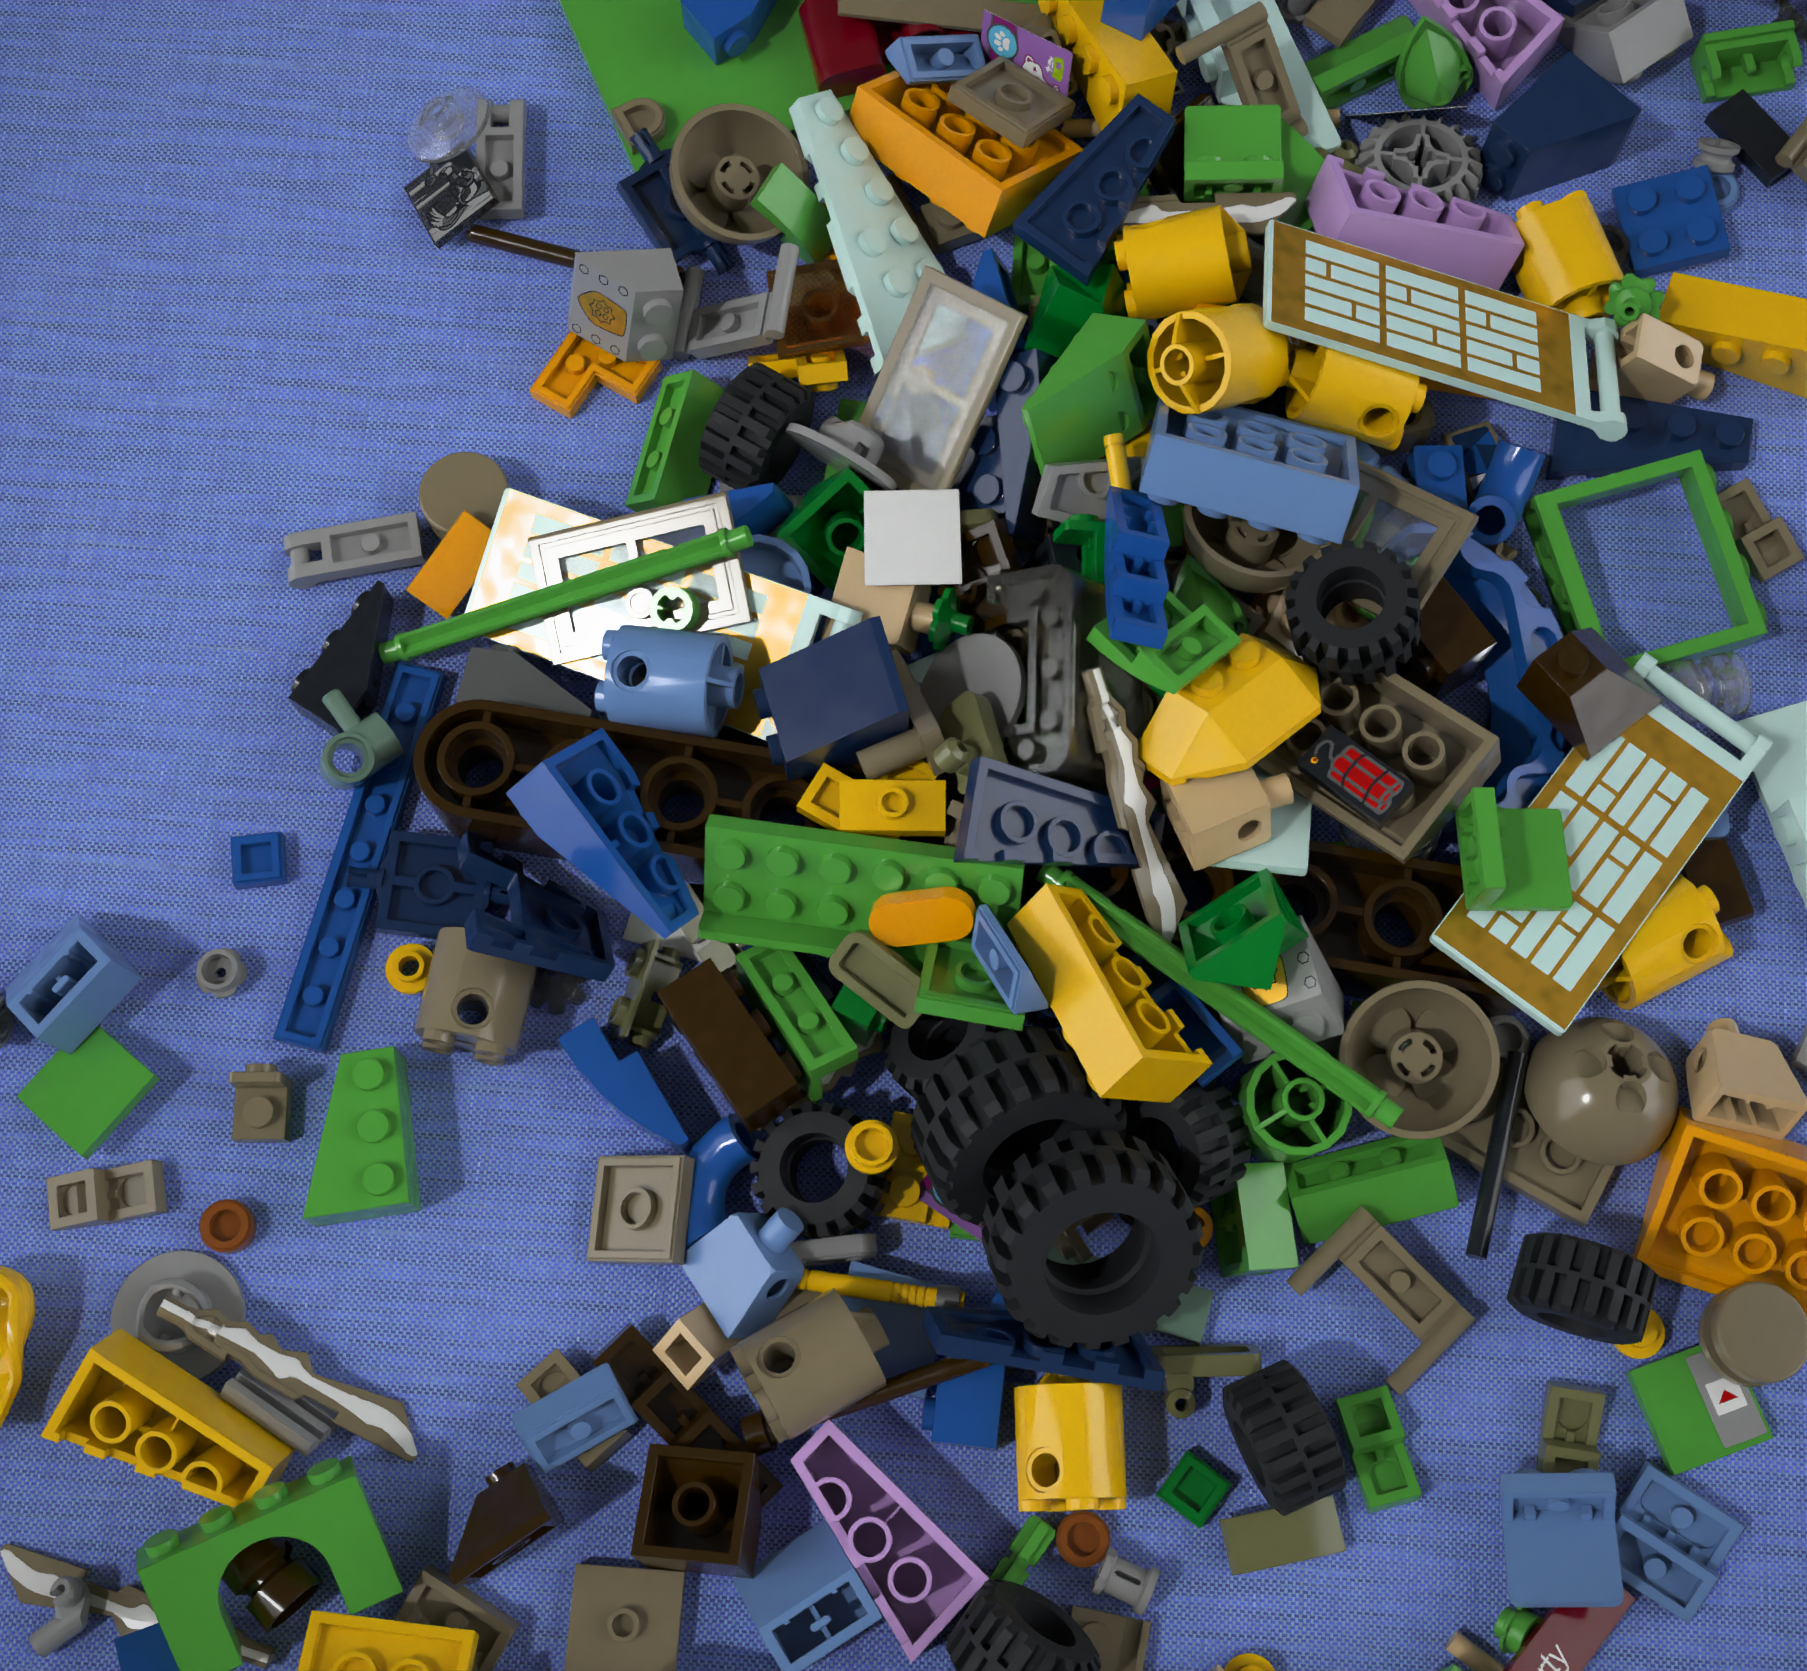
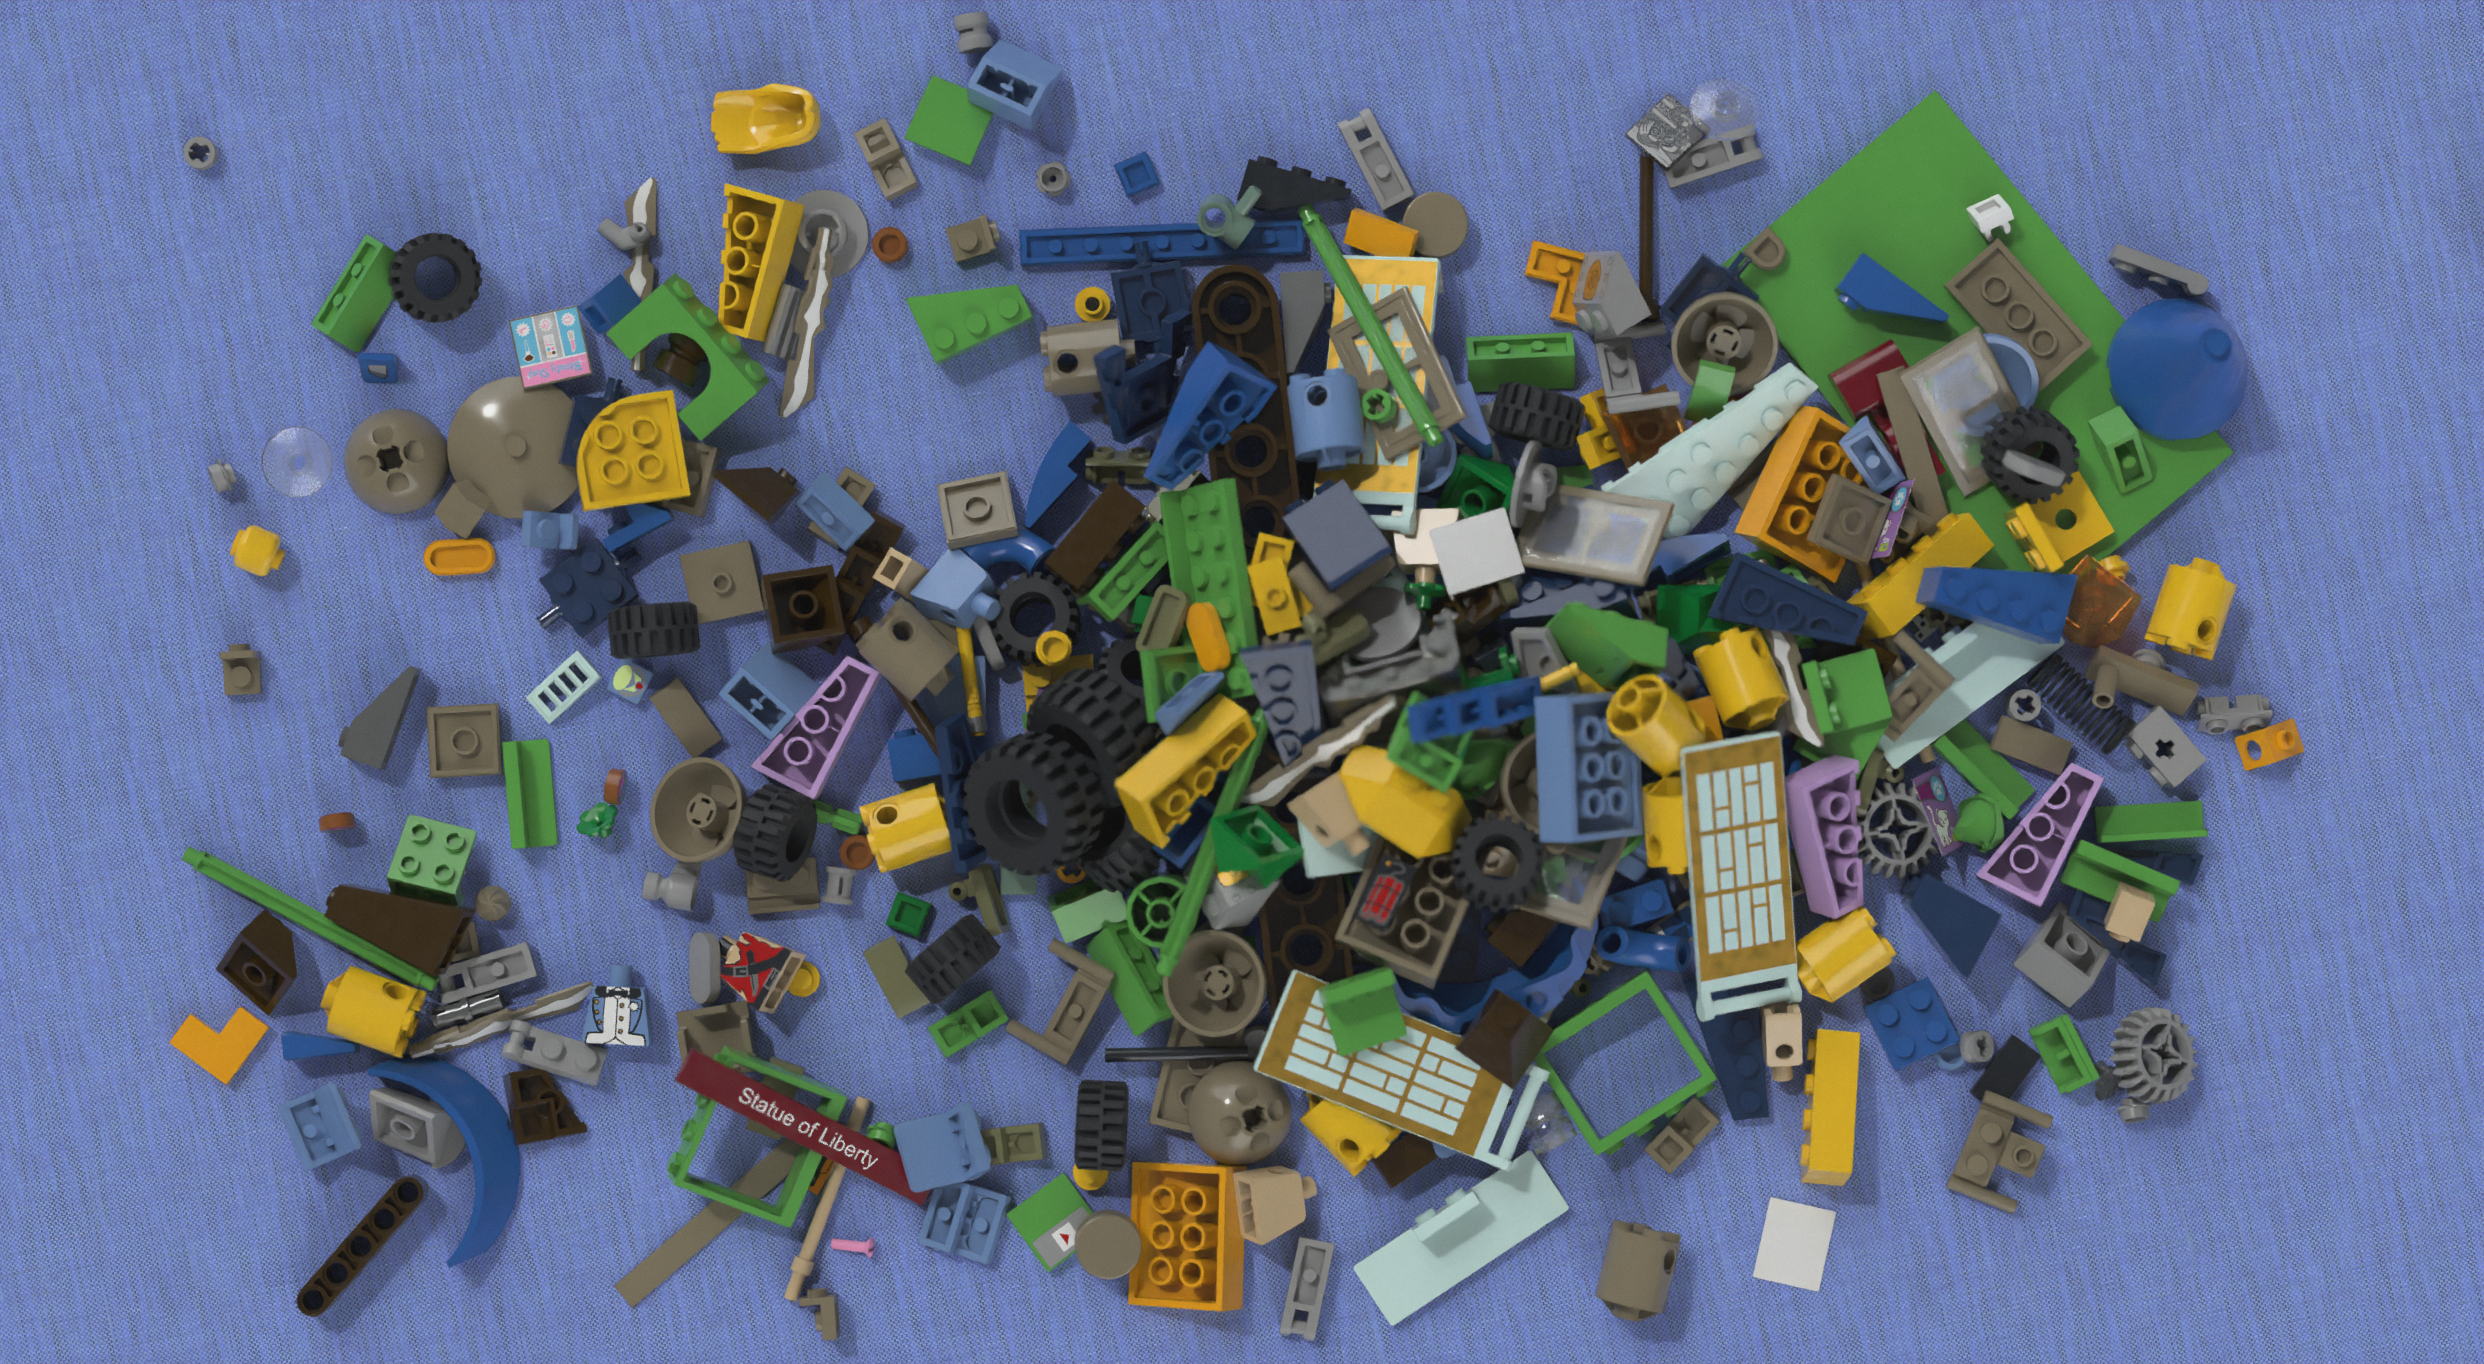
camera: 75 degrees right, 15 degrees up
(1633, 298) = (1815, 1007): bright green plant -> none

